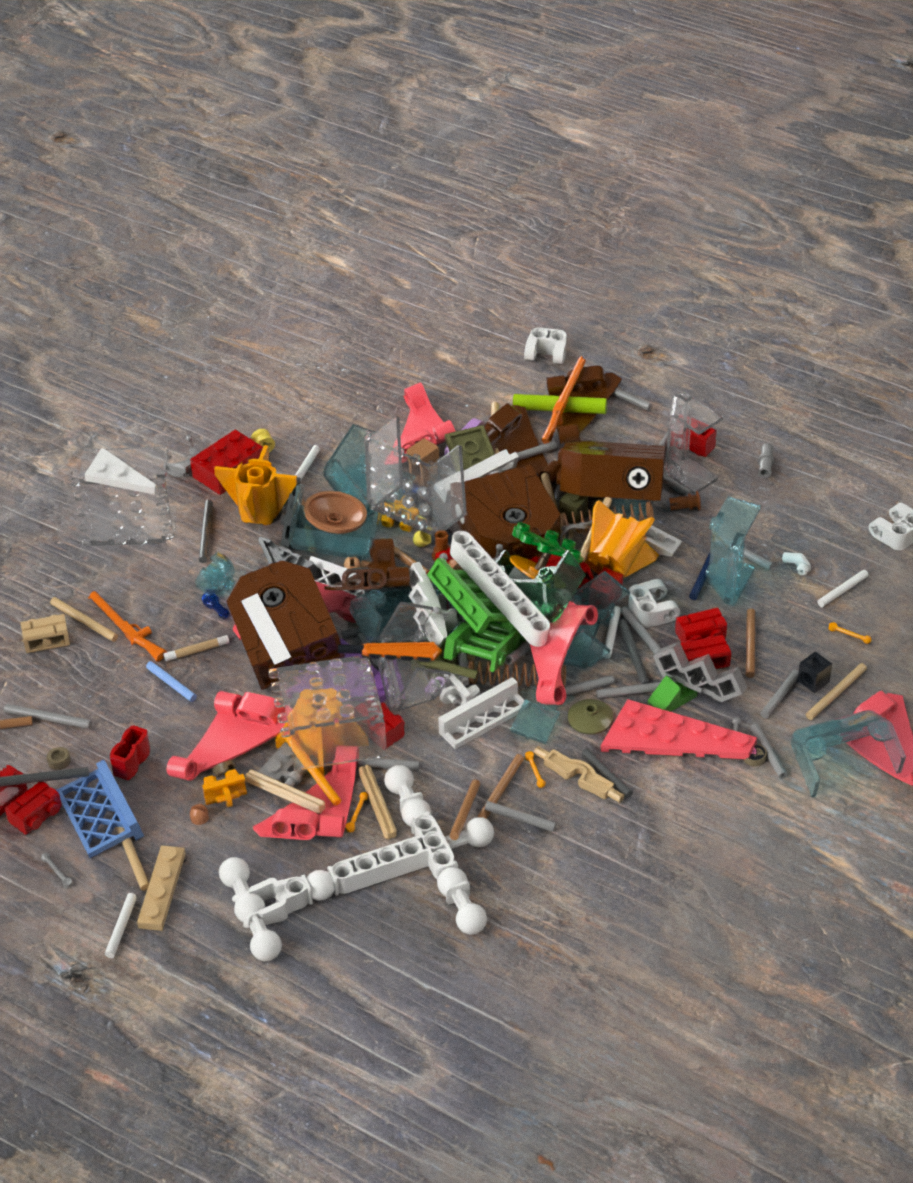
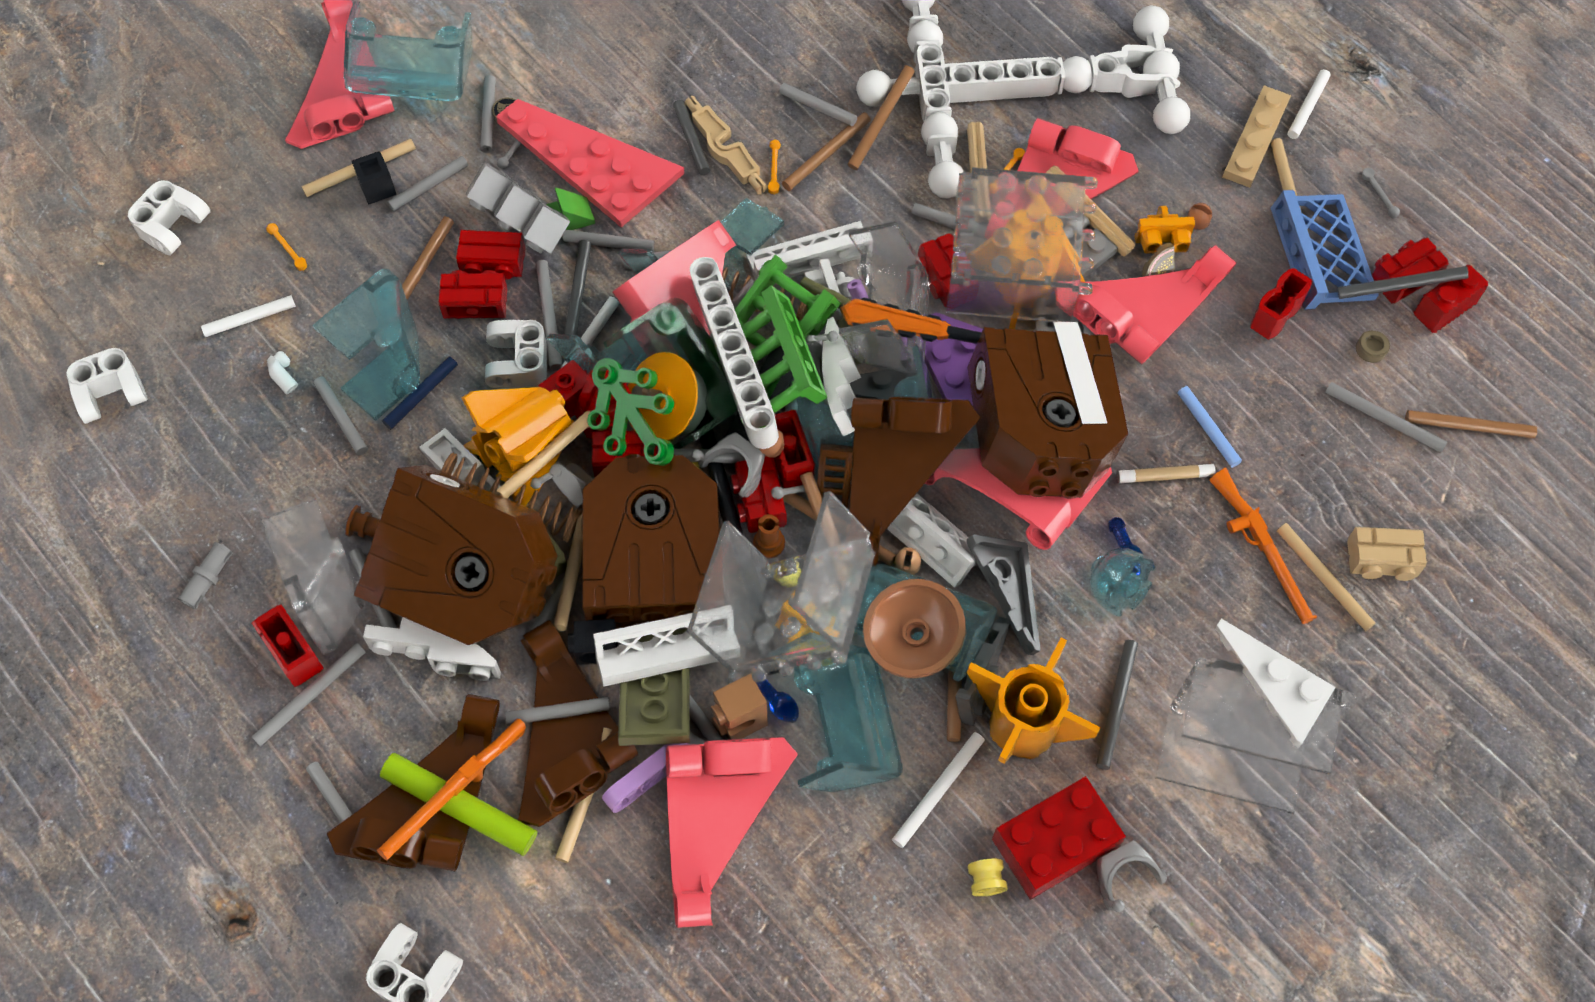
camera: 165 degrees left, 20 degrees up
(590, 716) = (674, 231): olive dish -> none

